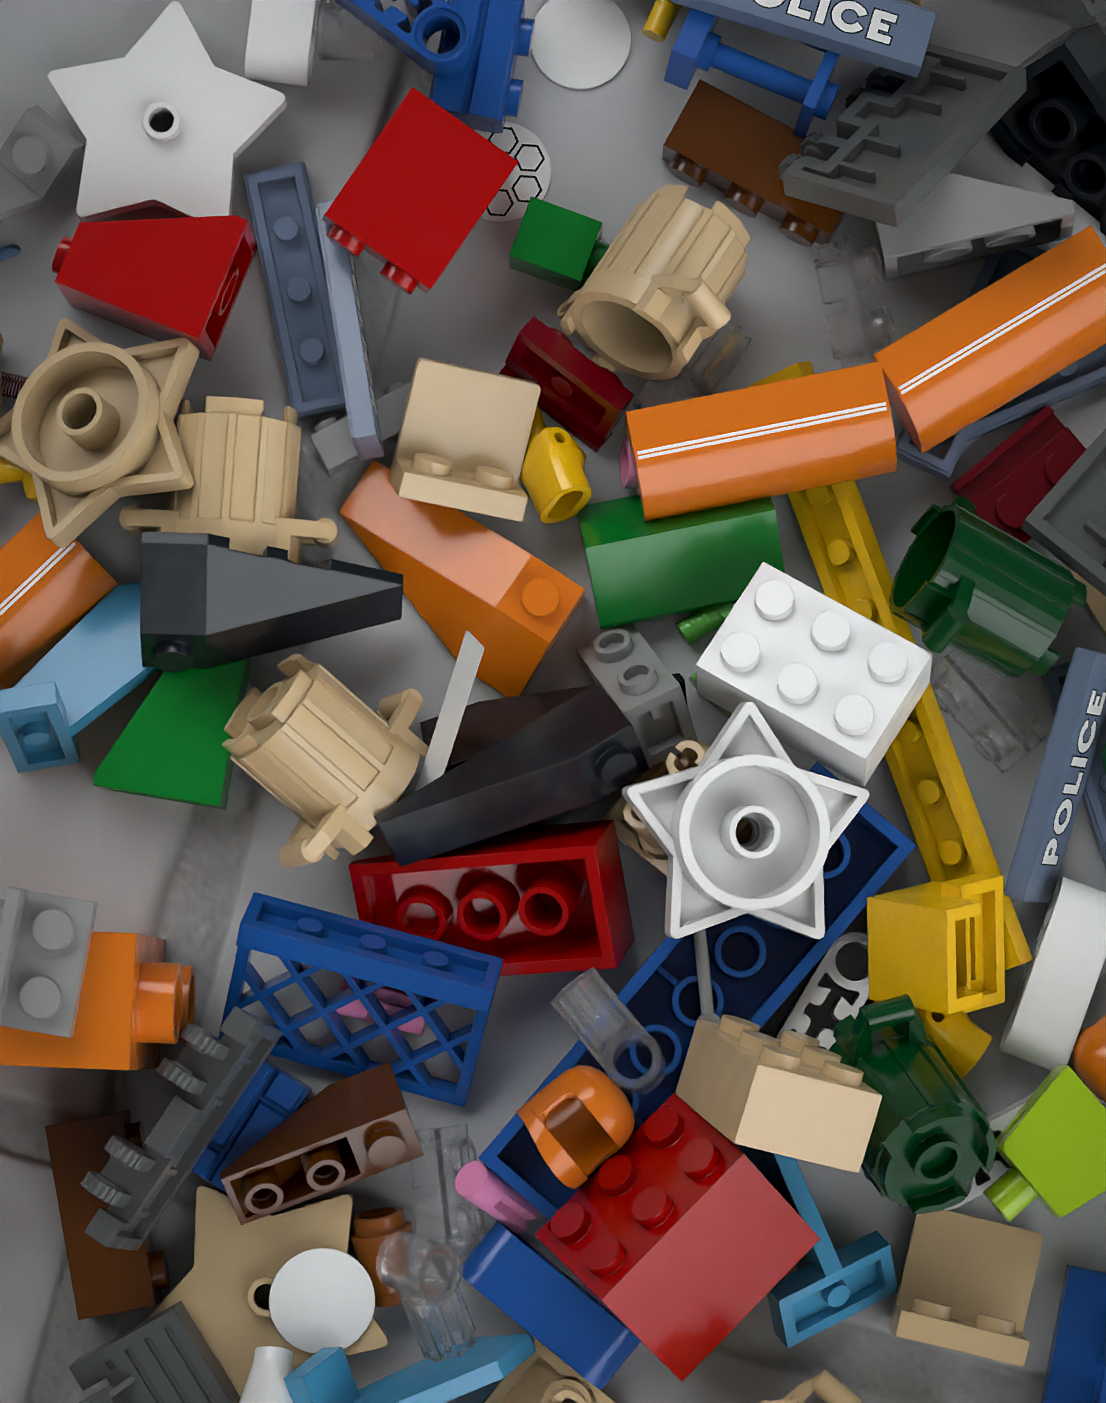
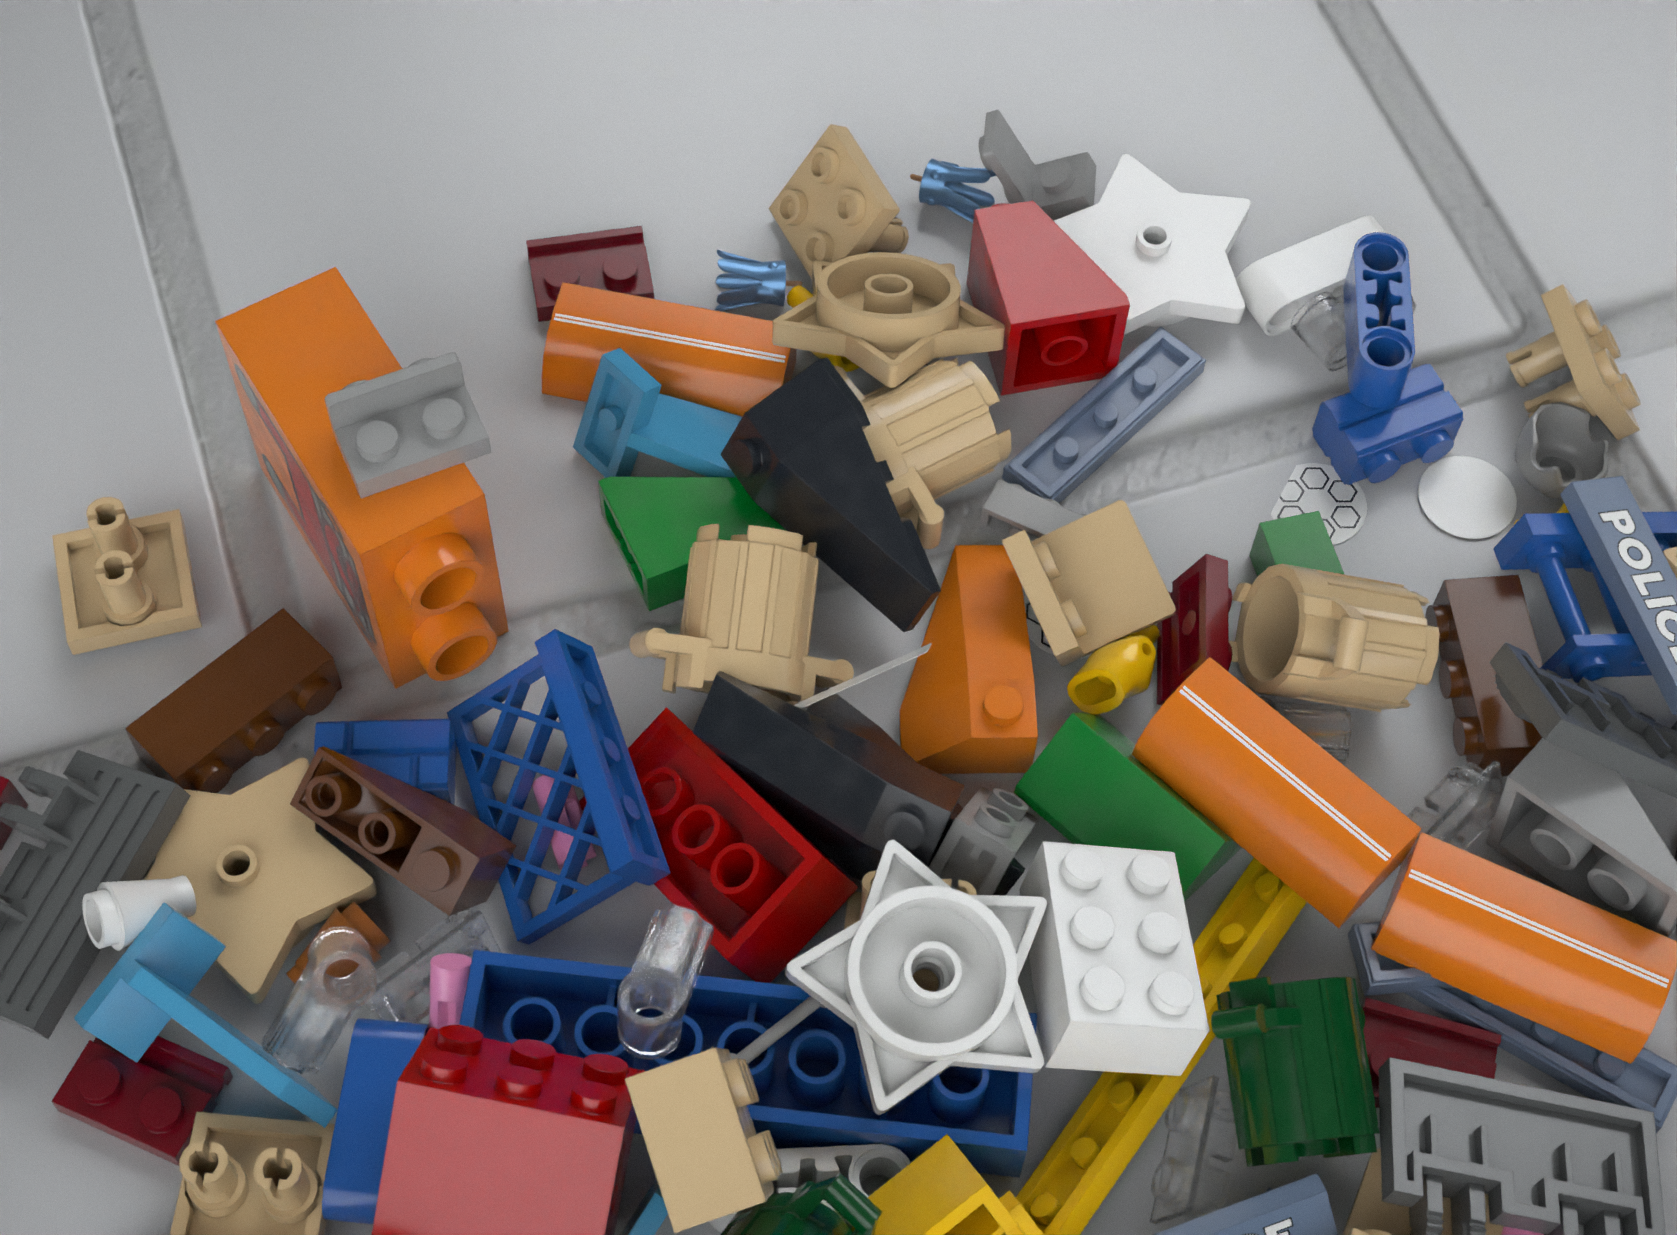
camera: 50 degrees right, 25 degrees down
(214, 1076) = (335, 683): dark grey hinge -> none
(321, 1300) = (261, 910): white sticker -> none
(351, 343) = (1103, 452): sand blue tile -> none
(417, 193) = (1254, 422): red slope -> none
(578, 1122) = (566, 995): orange helmet -> none

